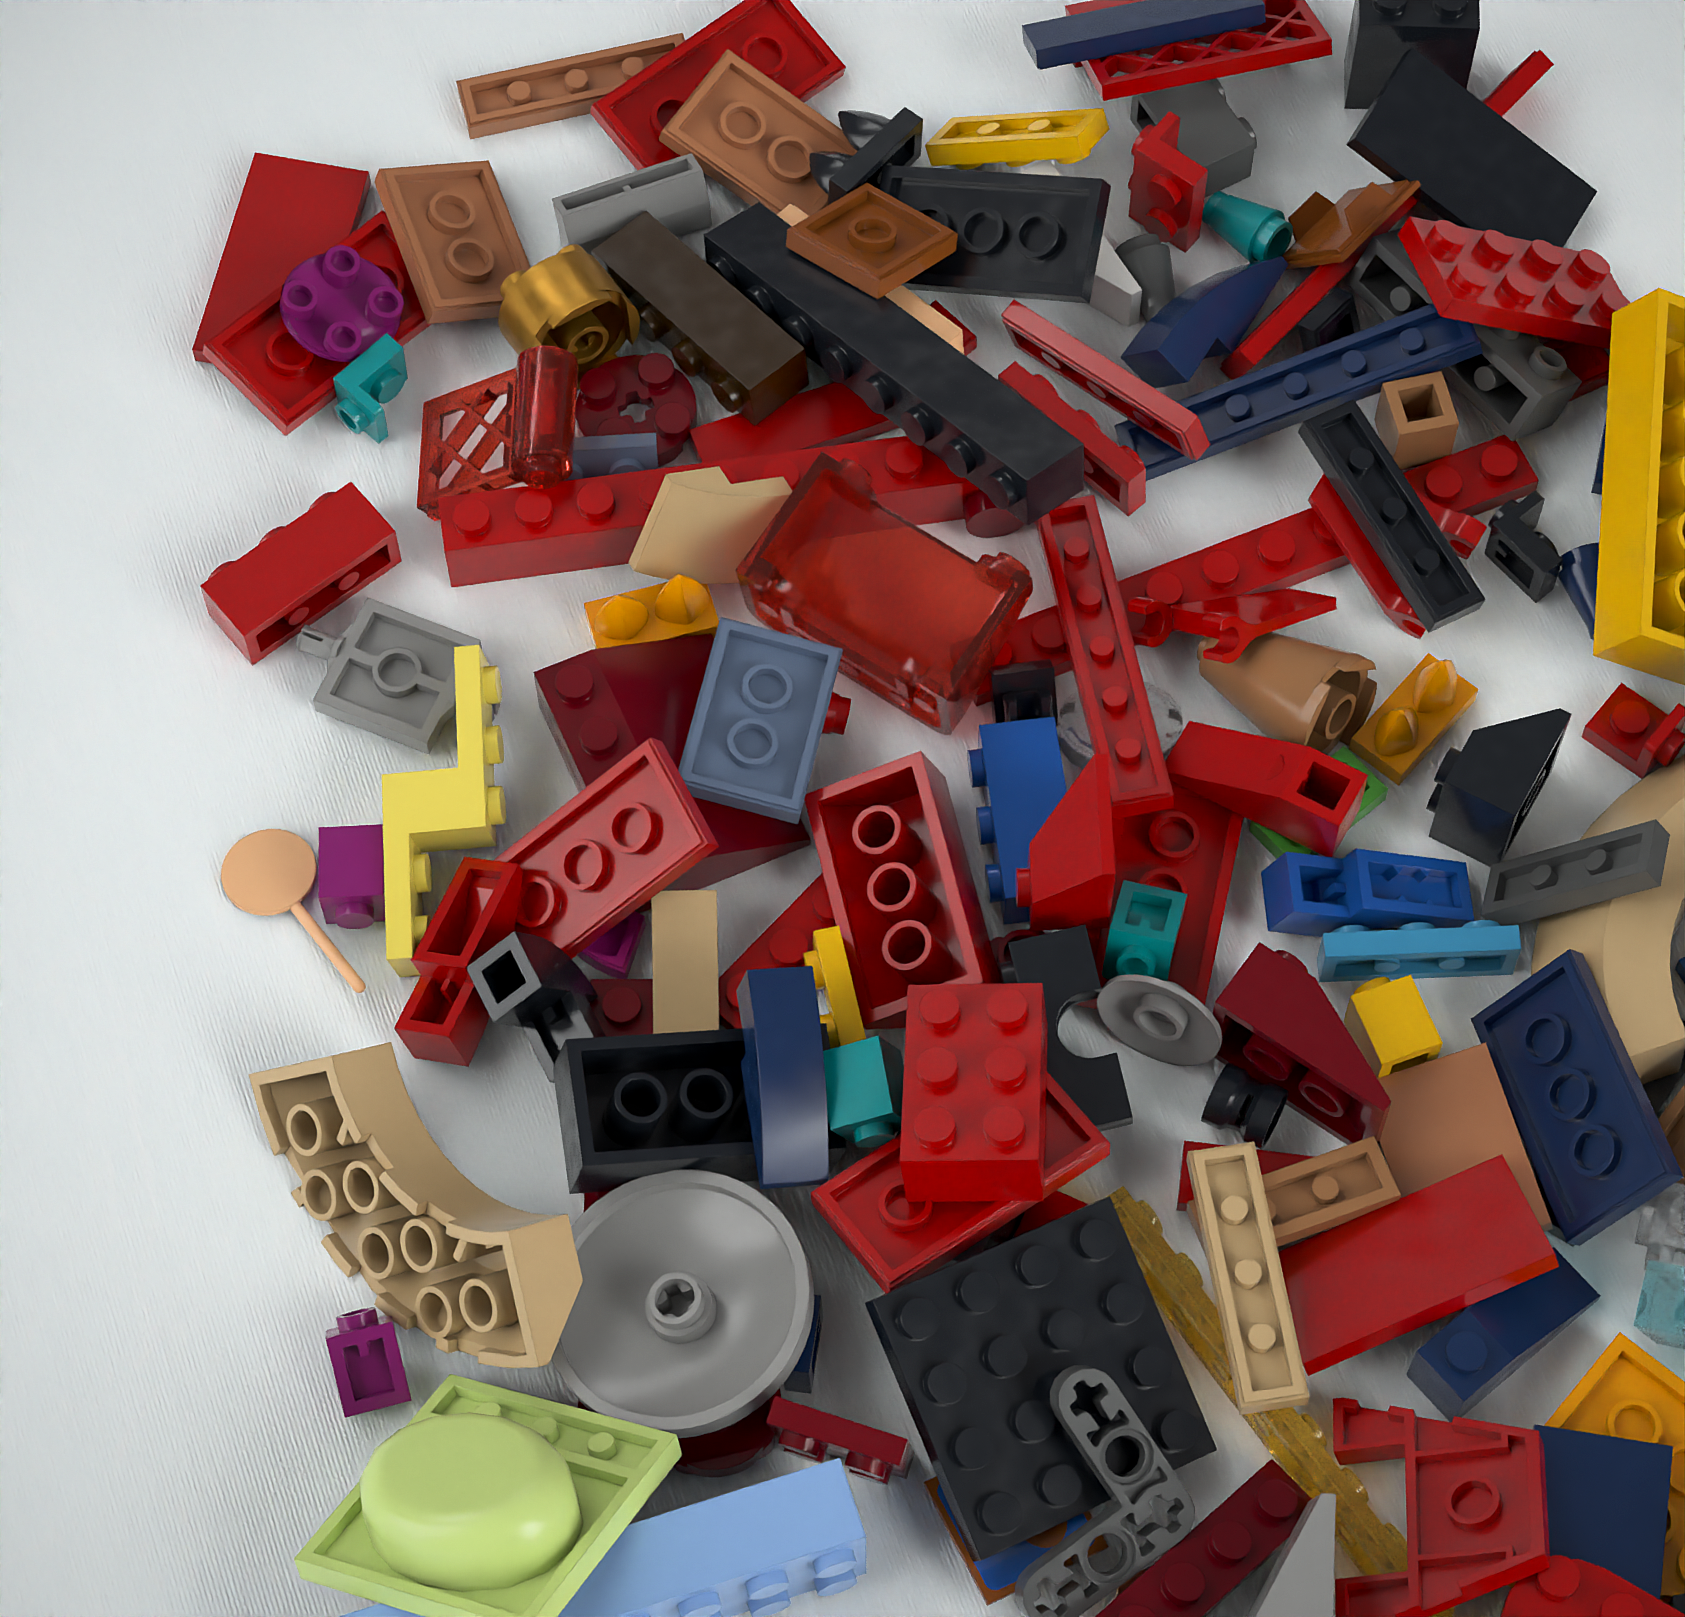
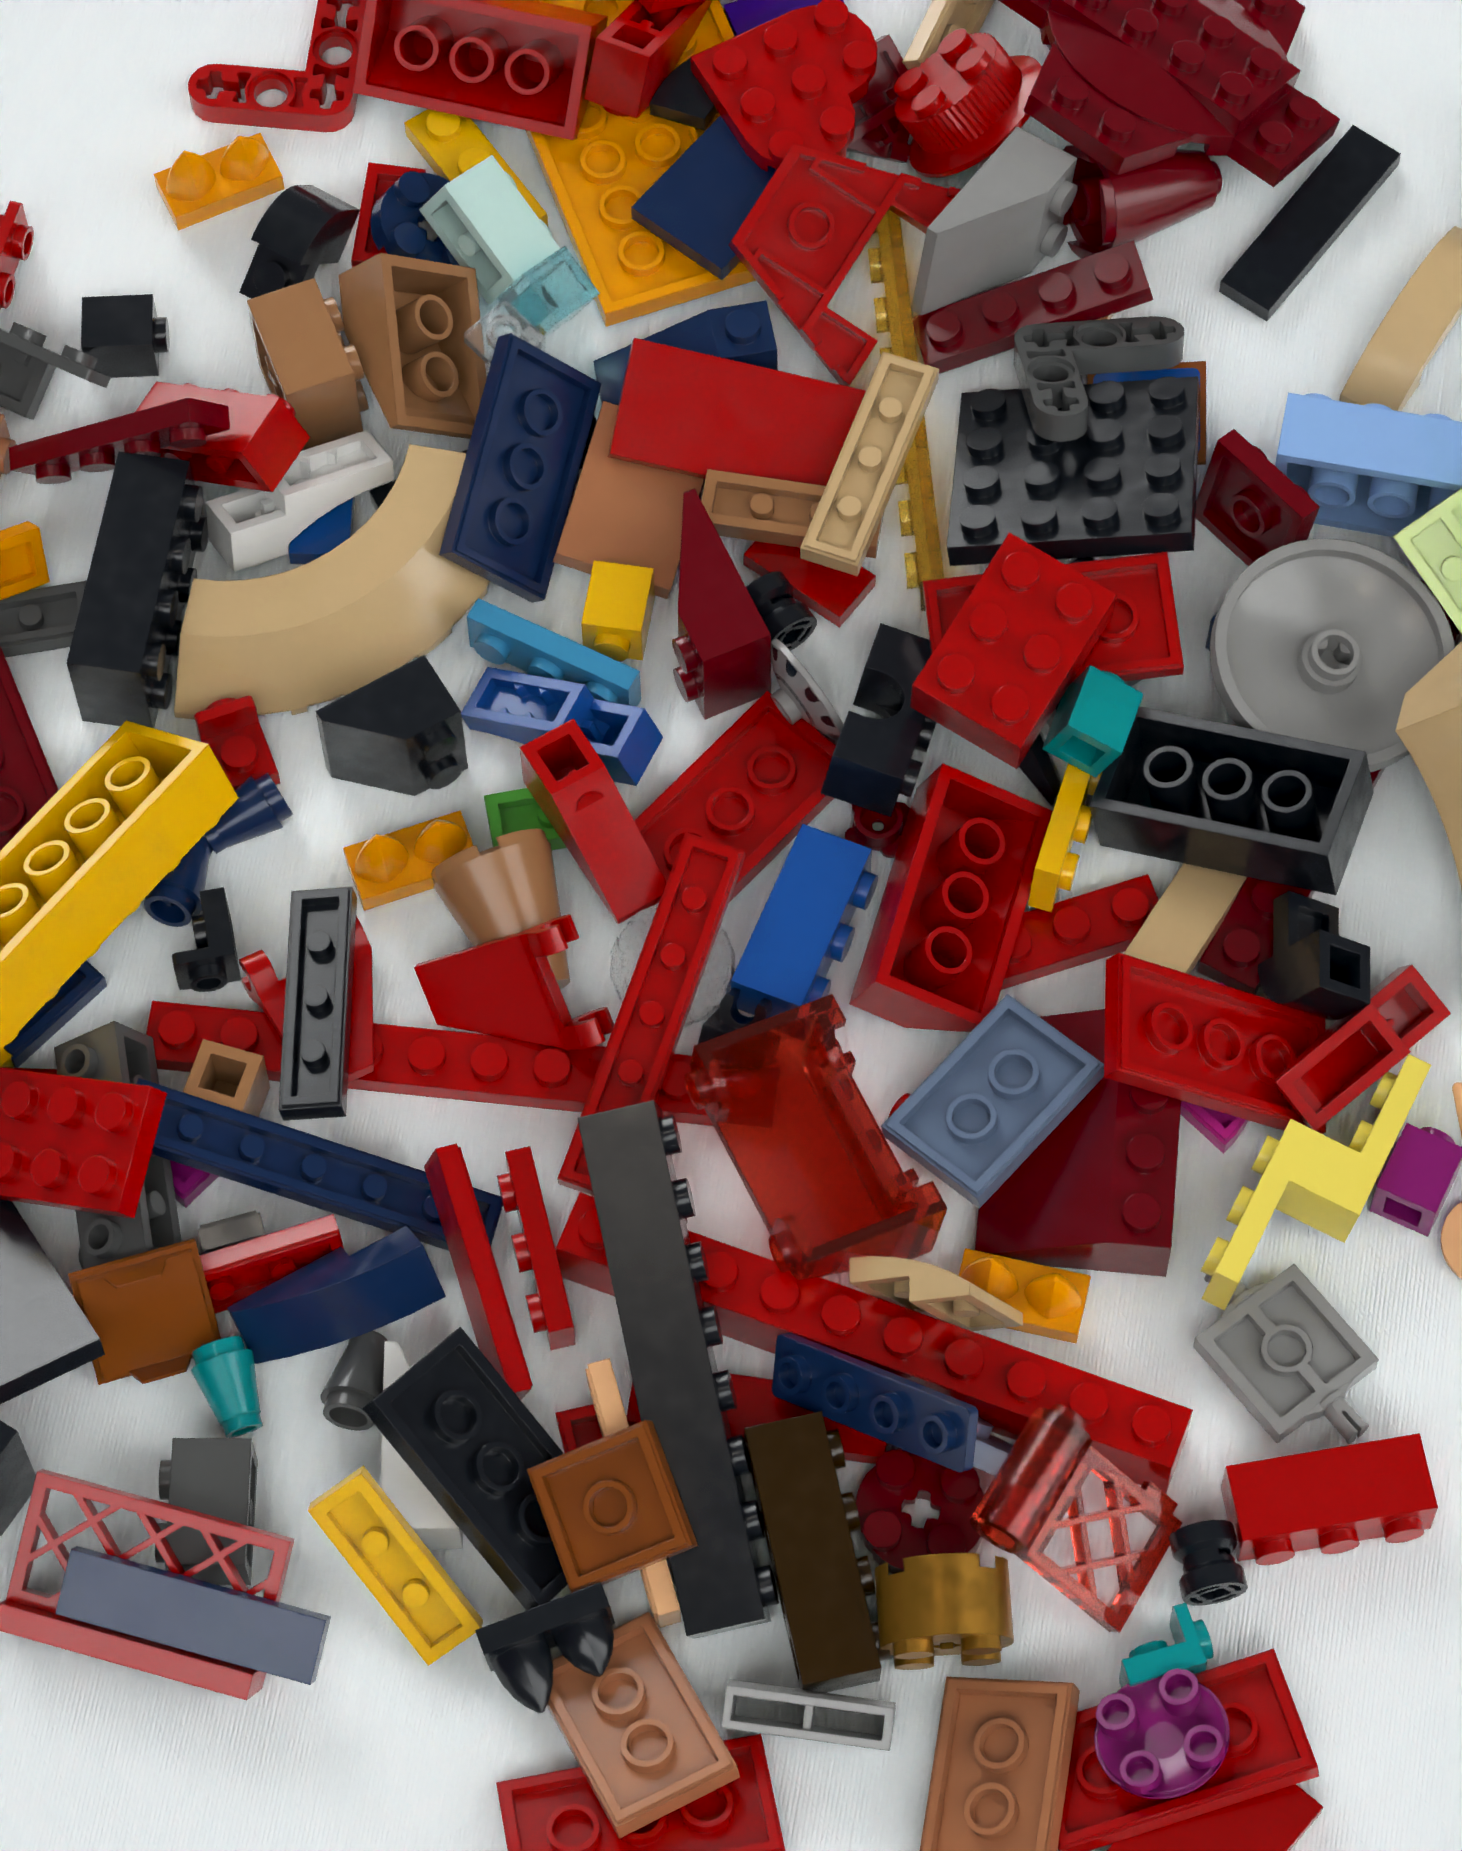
camera: 150 degrees left, 0 degrees up
(376, 474) = (1208, 1562): none -> black wheel
(689, 417) = (875, 1402): none -> dark blue bracket
(784, 1076) = (1156, 753): dark blue slope -> none
(1073, 857) = (805, 812): red slope -> none
(1143, 931) = (772, 761): teal bracket -> none
(1166, 185) = (289, 1463): red bracket -> none
(1576, 874) = (393, 612): dark grey plate -> none
(1578, 681) = (252, 815): none -> dark blue cone

